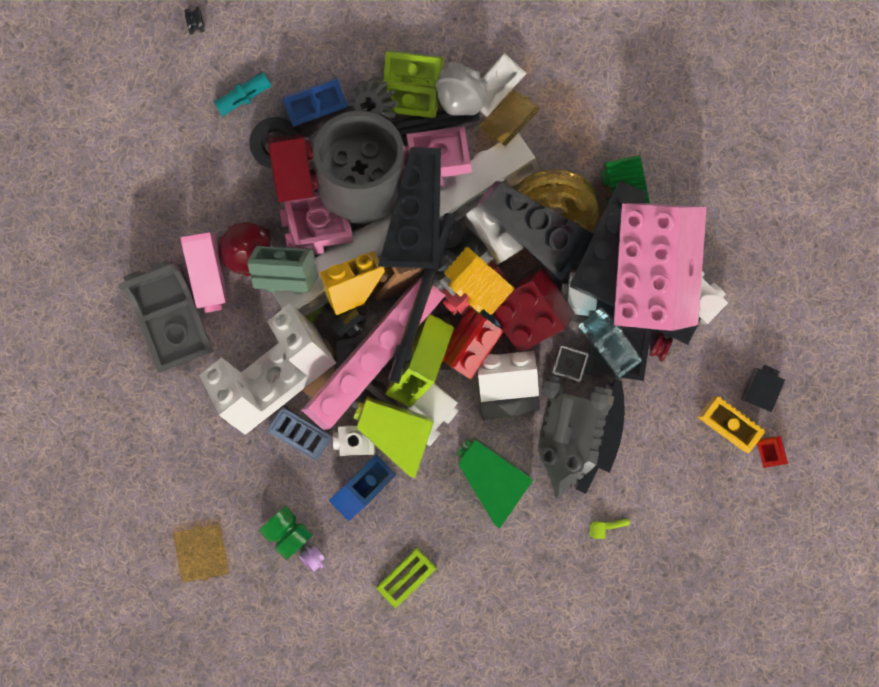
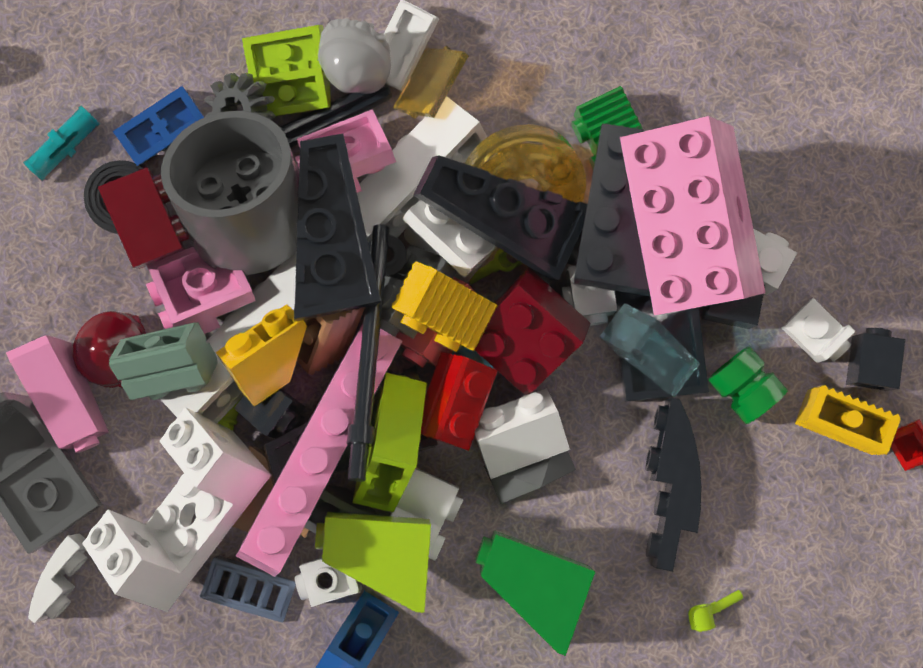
camera: 15 degrees left, 5 degrees down
(169, 399) = (53, 588): none -> white slope
(522, 256) = (499, 263): none -> lime hand
(571, 433) = (630, 490): dark grey shield -> none
(580, 361) = (613, 385): light grey piece -> none
(660, 347) = (719, 340): dark red bush -> none
(671, 382) = (748, 385): none -> green wheel
(730, 359) = (818, 332): none -> white bracket

